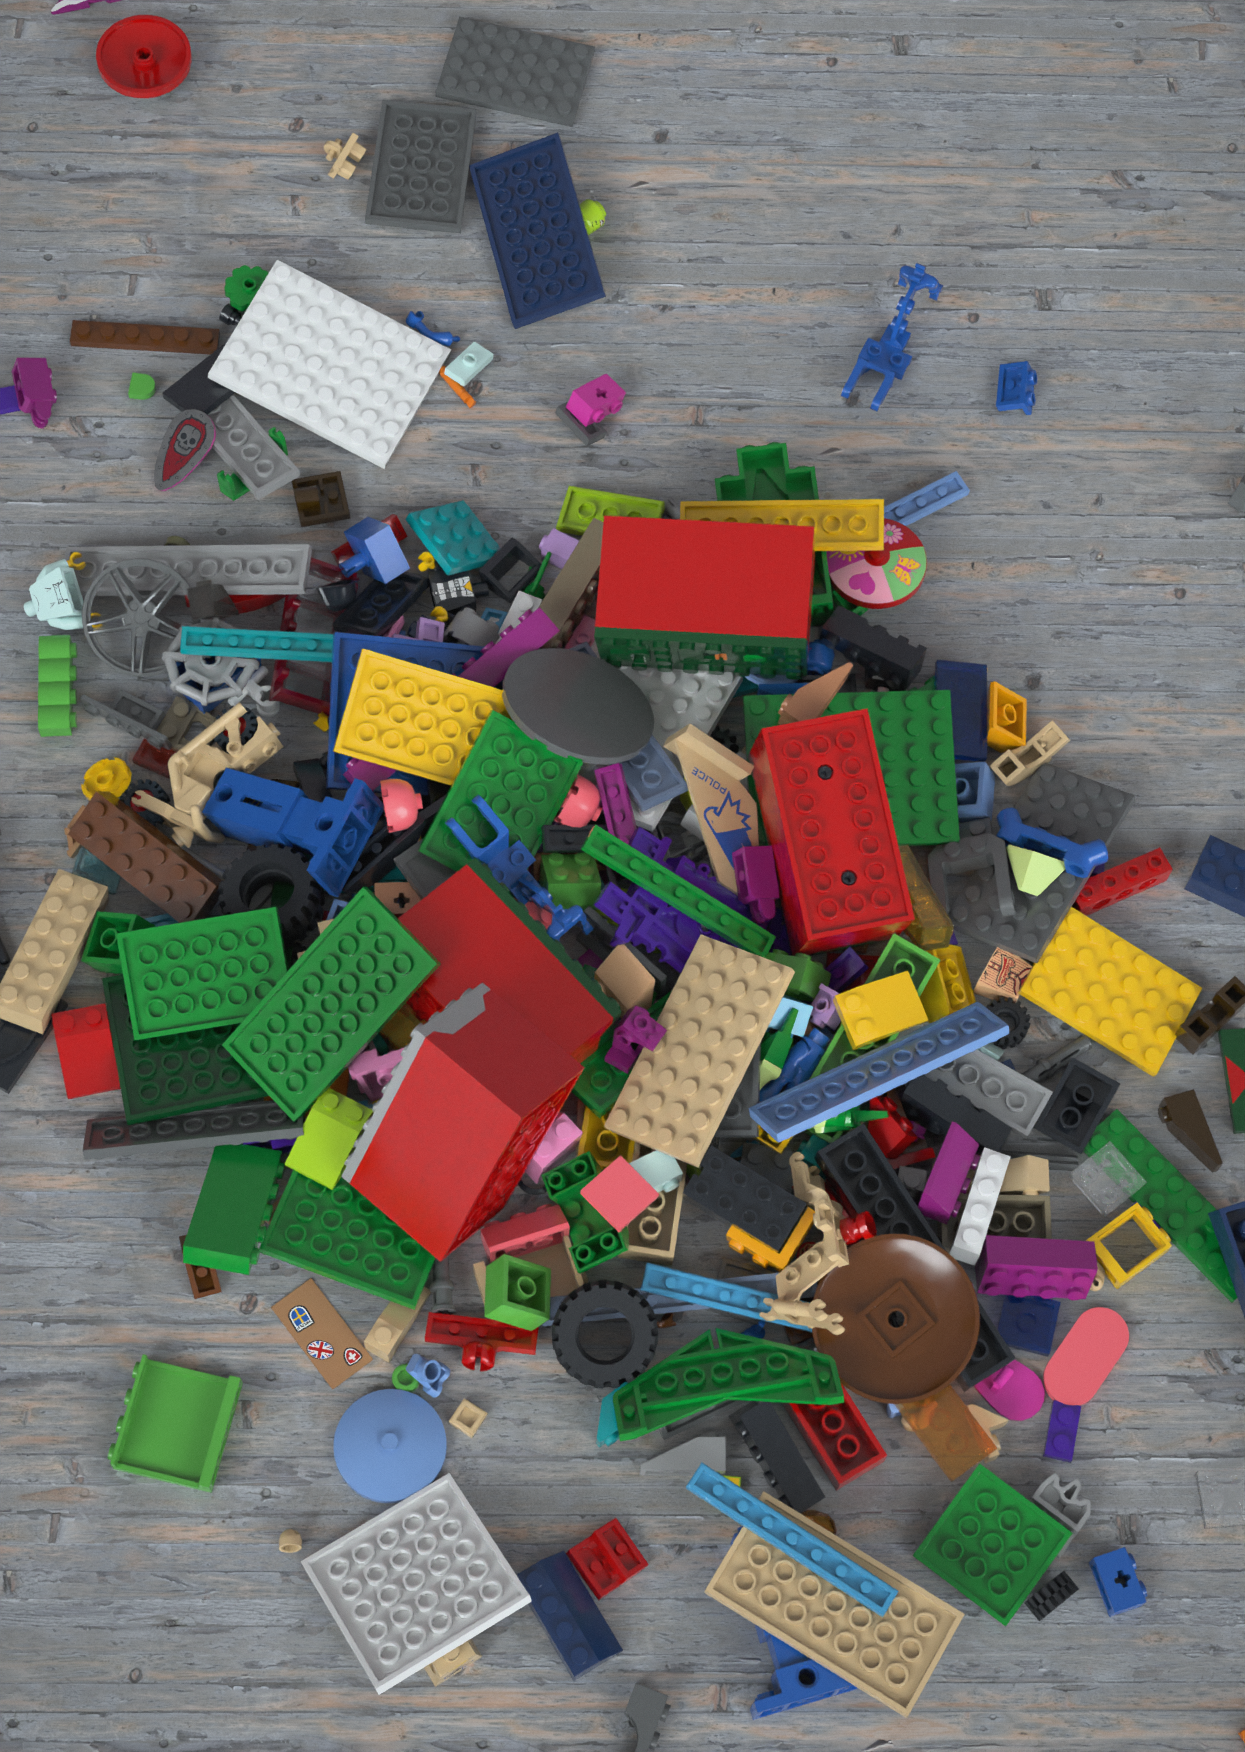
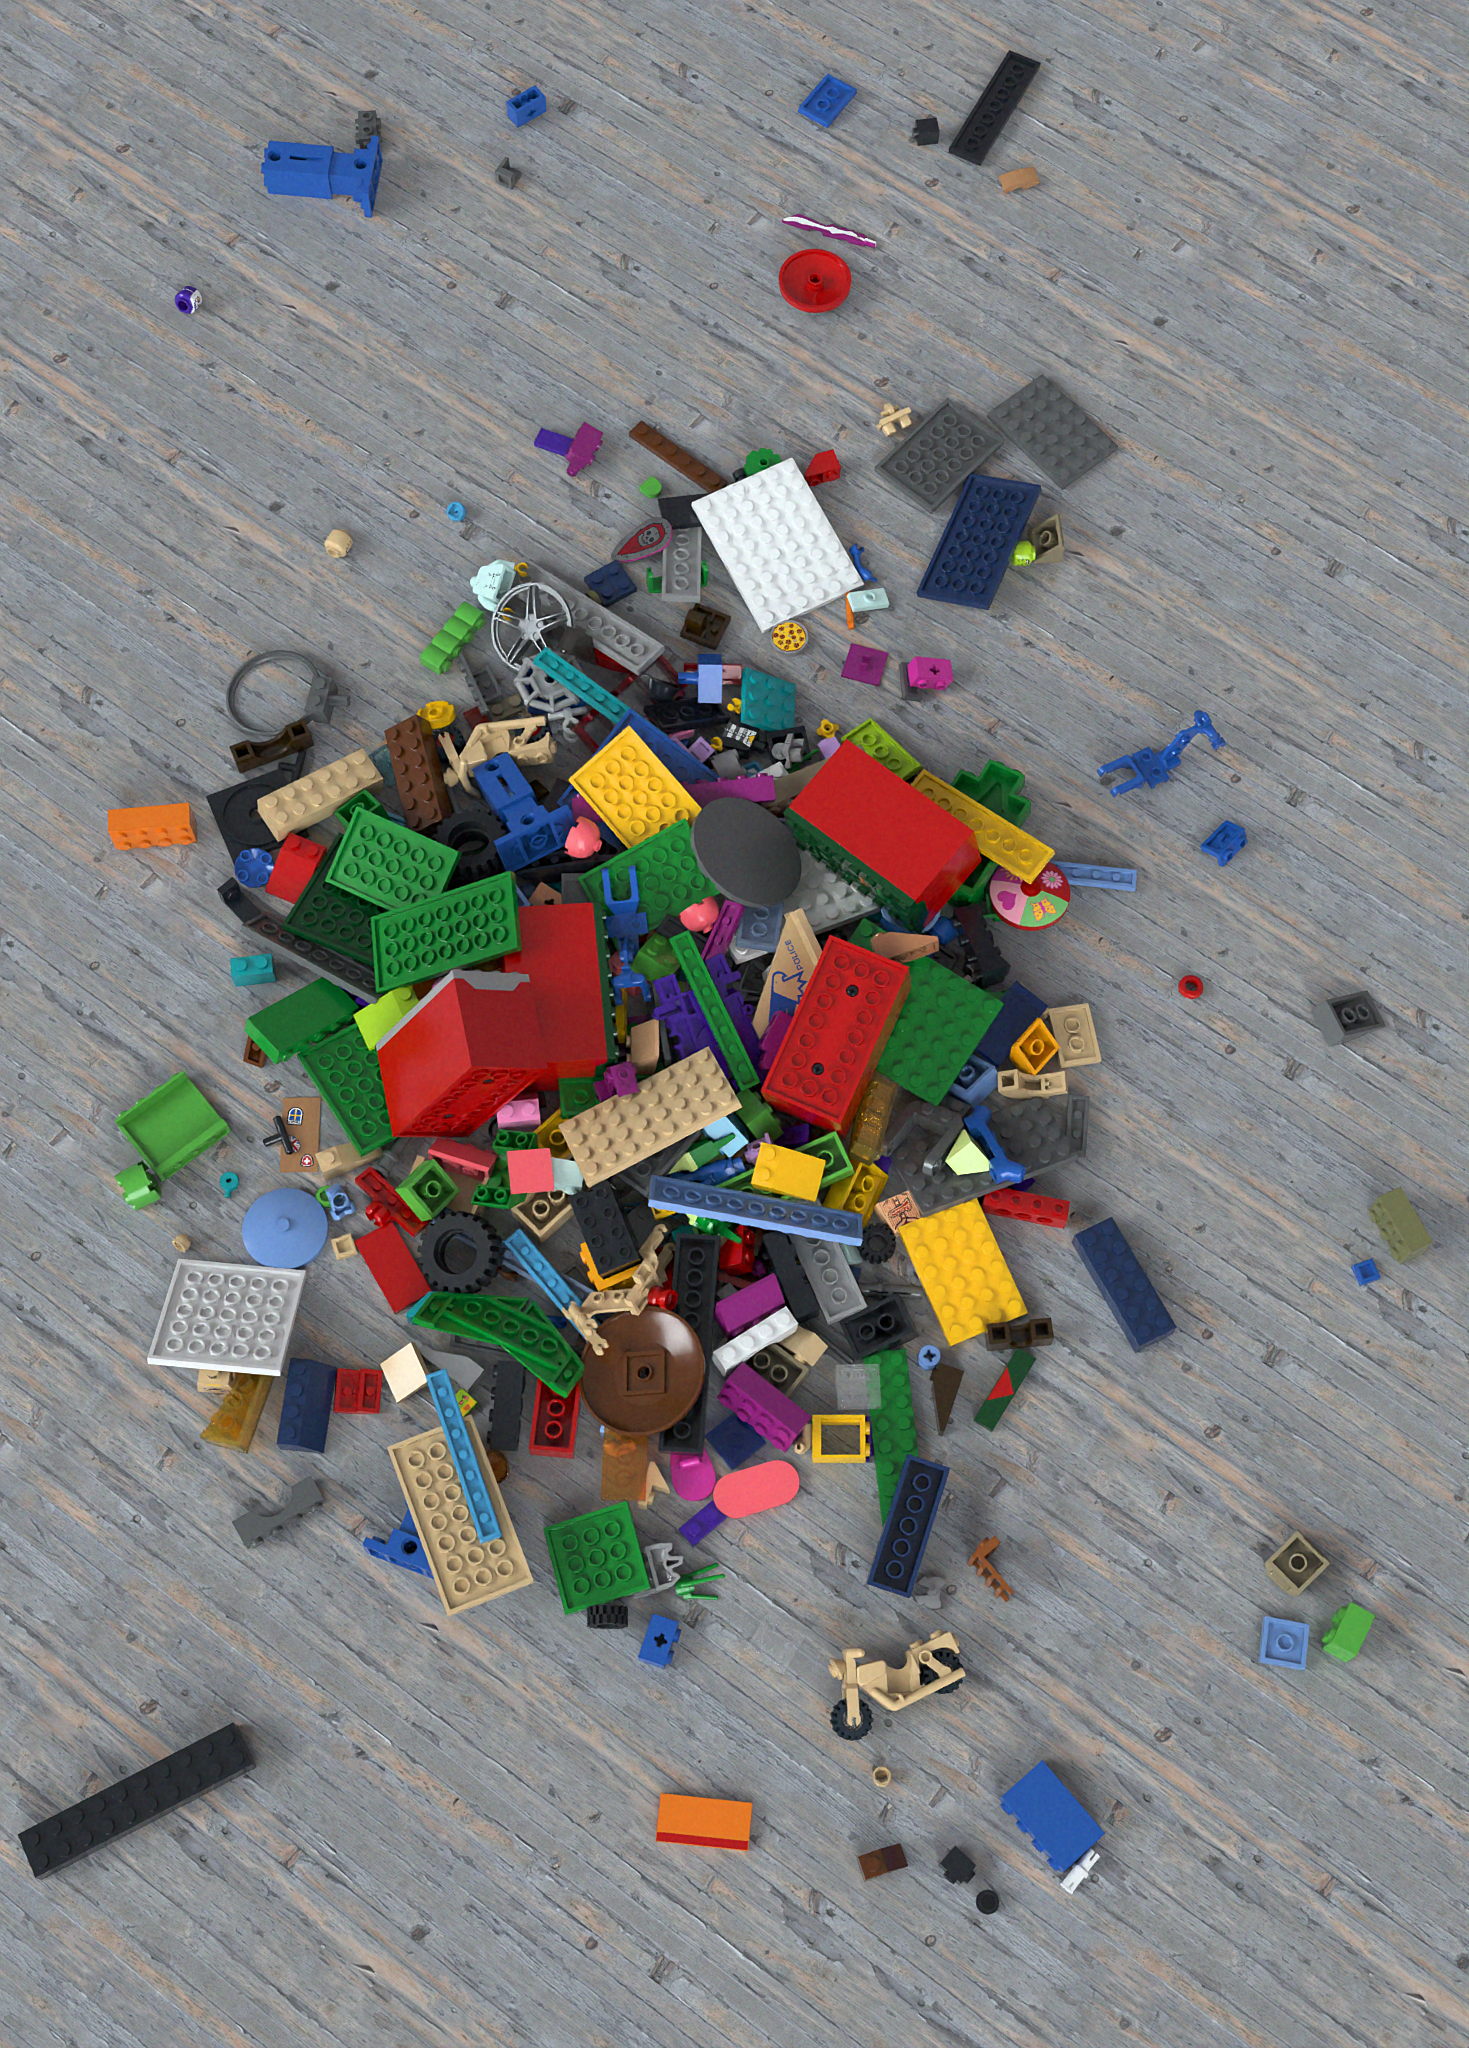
camera: 40 degrees right, 0 degrees up
(36, 1080) = (254, 867): none -> blue dish
(51, 1130) = (237, 901): none -> black bracket
(128, 1192) = (253, 970): none -> teal brick
(180, 516) = (610, 583): none -> dark blue plate
(195, 1512) = (139, 1185): none -> bright green brick
(290, 1445) = (229, 1187): none -> teal piece
(304, 1348) = (280, 1136): none -> black piece
(313, 251) = (823, 468): none -> red slope
(417, 456) = (789, 638): none -> tile
(506, 1679) = (240, 1413): none -> clear yellow wedge
(517, 434) = (864, 664): none -> magenta piece
(523, 572) = (791, 750): none -> light grey hips
(535, 533) = (825, 724): none -> yellow plate
(538, 1401) = (393, 1267): none -> red tile
(604, 184) = (1047, 540): none -> dark tan slope
(645, 1501) = (405, 1372): none -> tile
(1029, 677) = (1075, 1034): none -> tan plate
(1093, 563) = (1190, 994): none -> red piece
(1097, 762) = (1077, 1122): none -> dark grey plate
(1100, 1503) = (686, 1584): none -> green plant
(1141, 1106) = (928, 1362): none -> medium blue wheel

